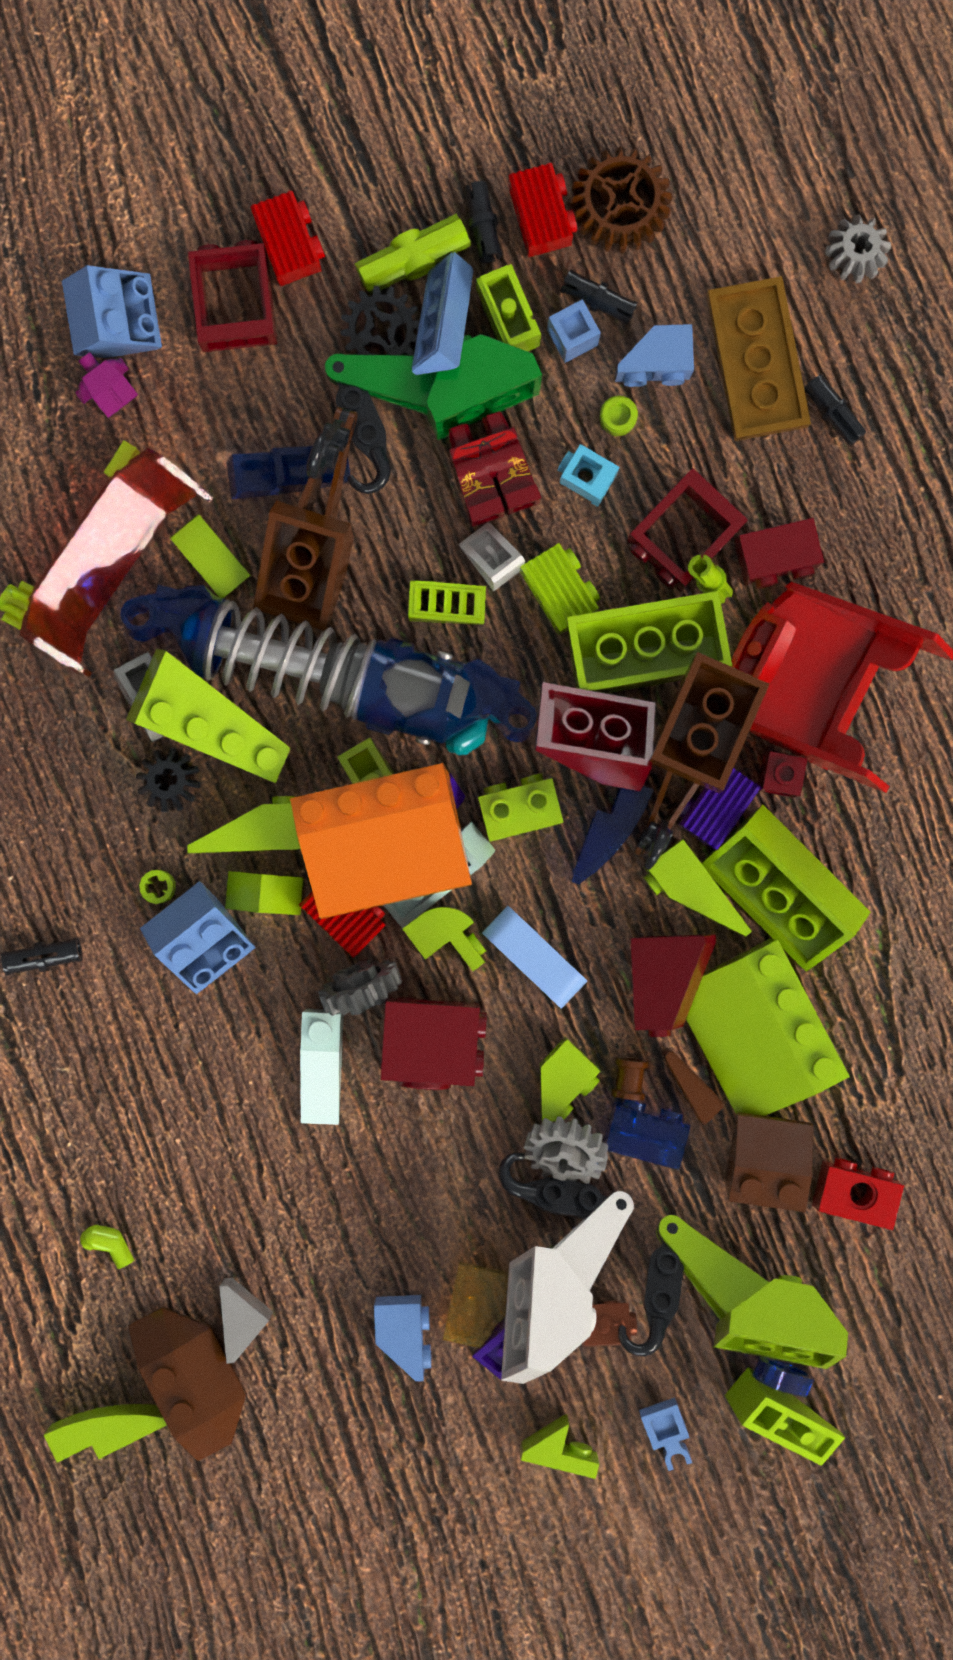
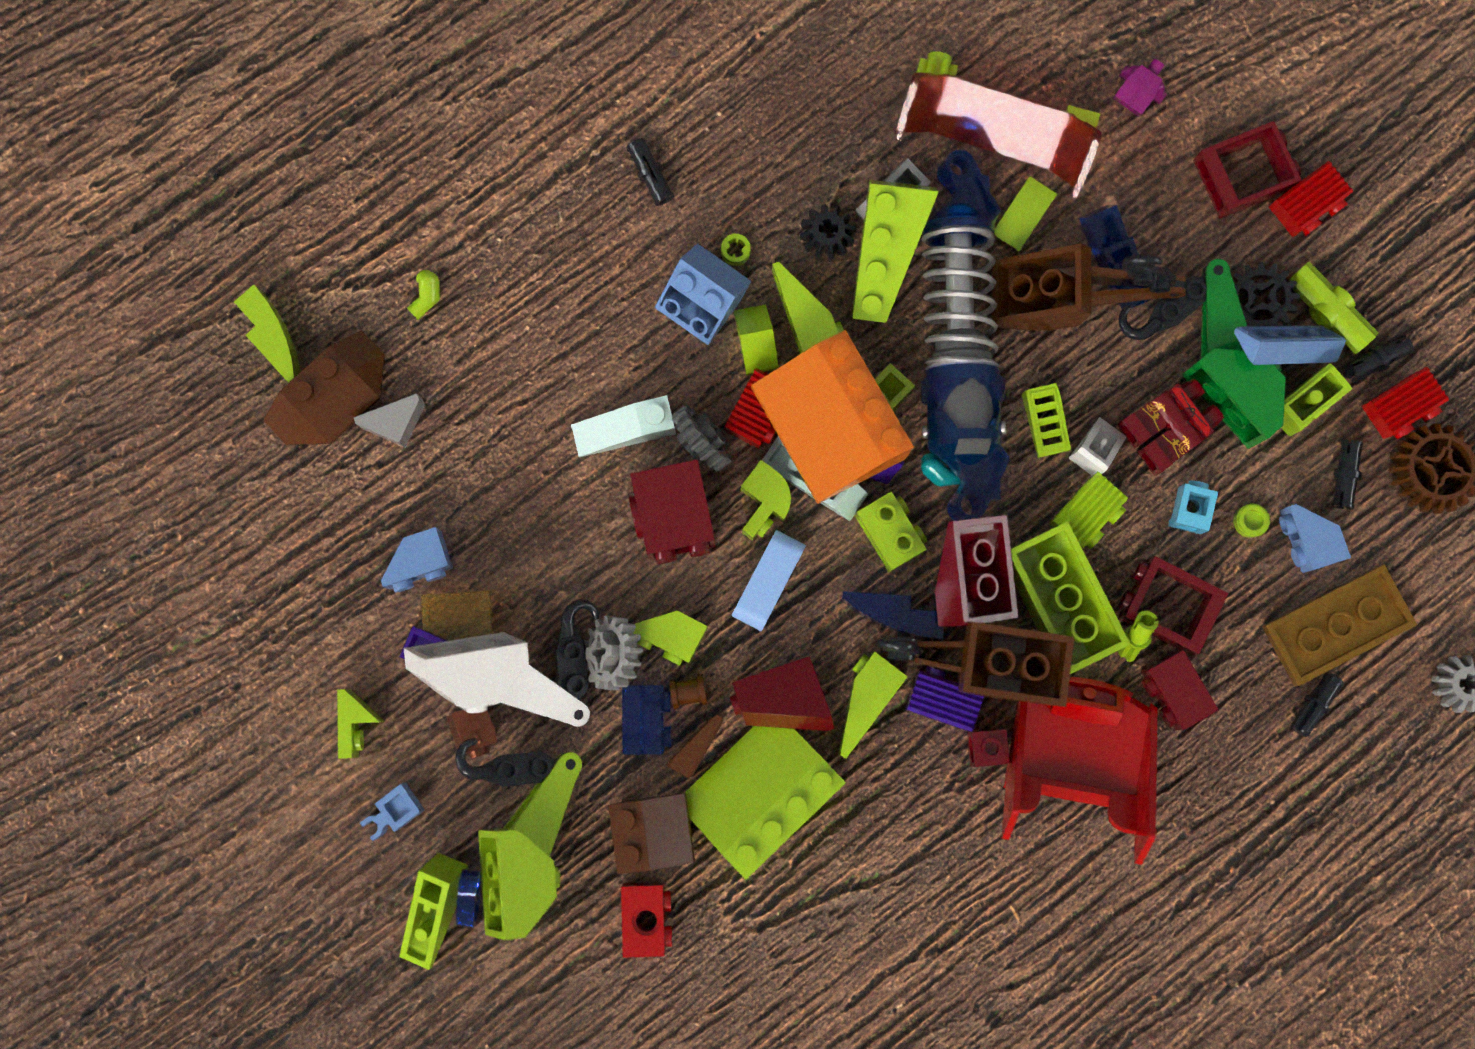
camera: 75 degrees right, 5 degrees down
(111, 312) = (1202, 75): medium blue slope -> none
(573, 331) = (1312, 459): medium blue brick -> none
(786, 889) = (890, 779): lime slope -> none

